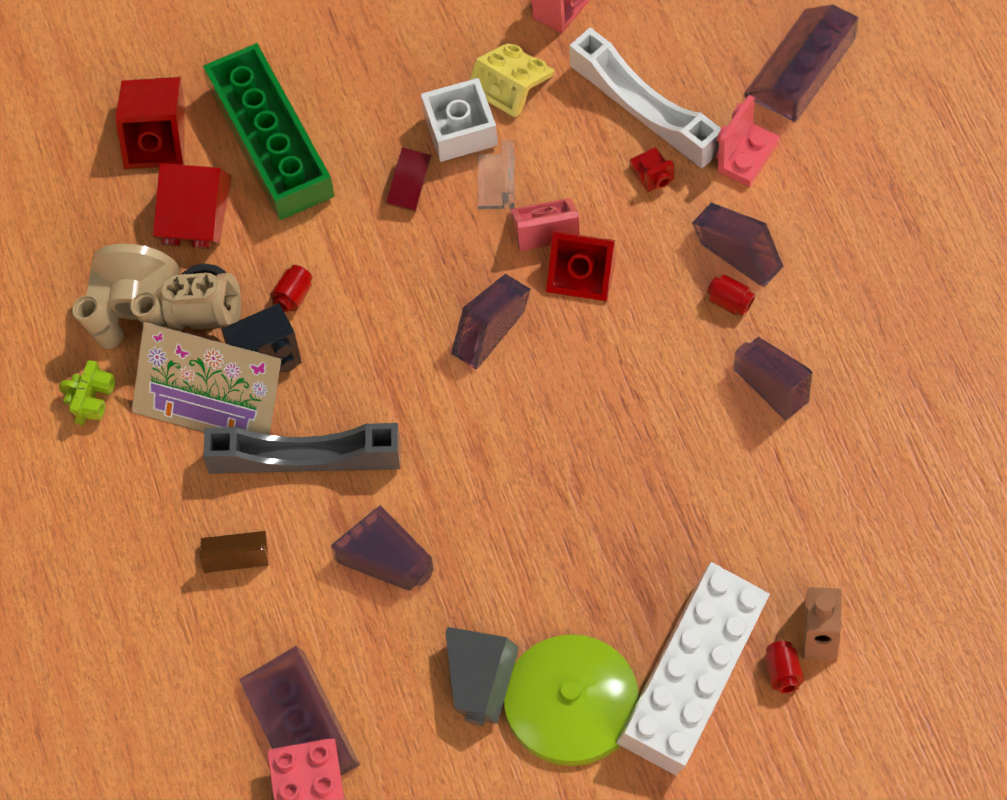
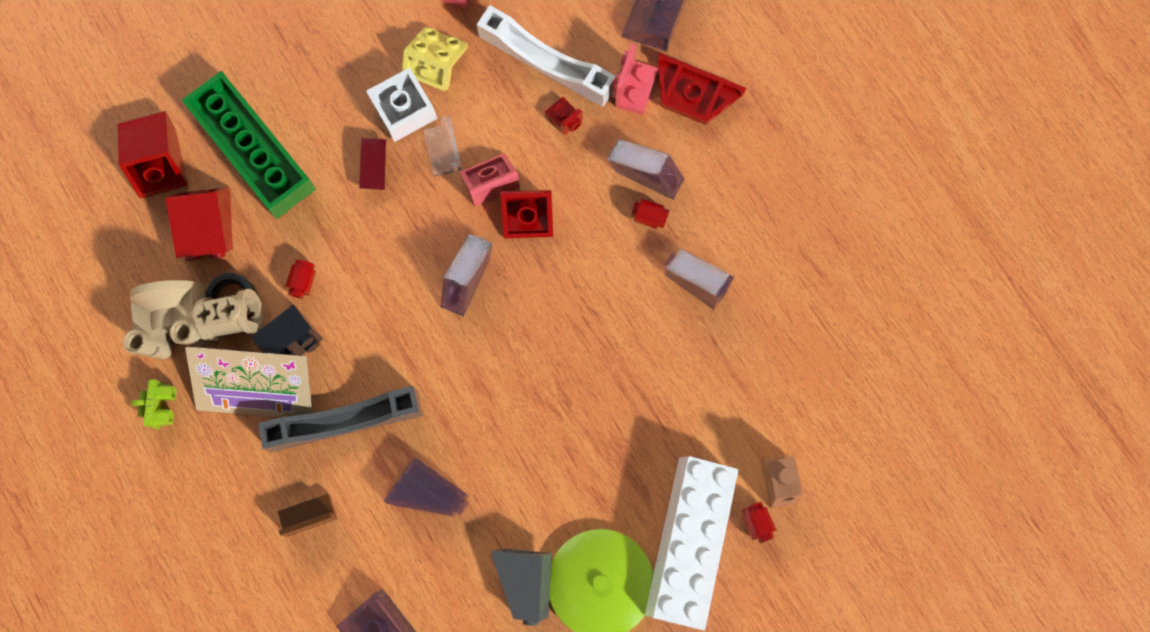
camera: 15 degrees left, 15 degrees up
(819, 170) = (694, 91): none -> red wing

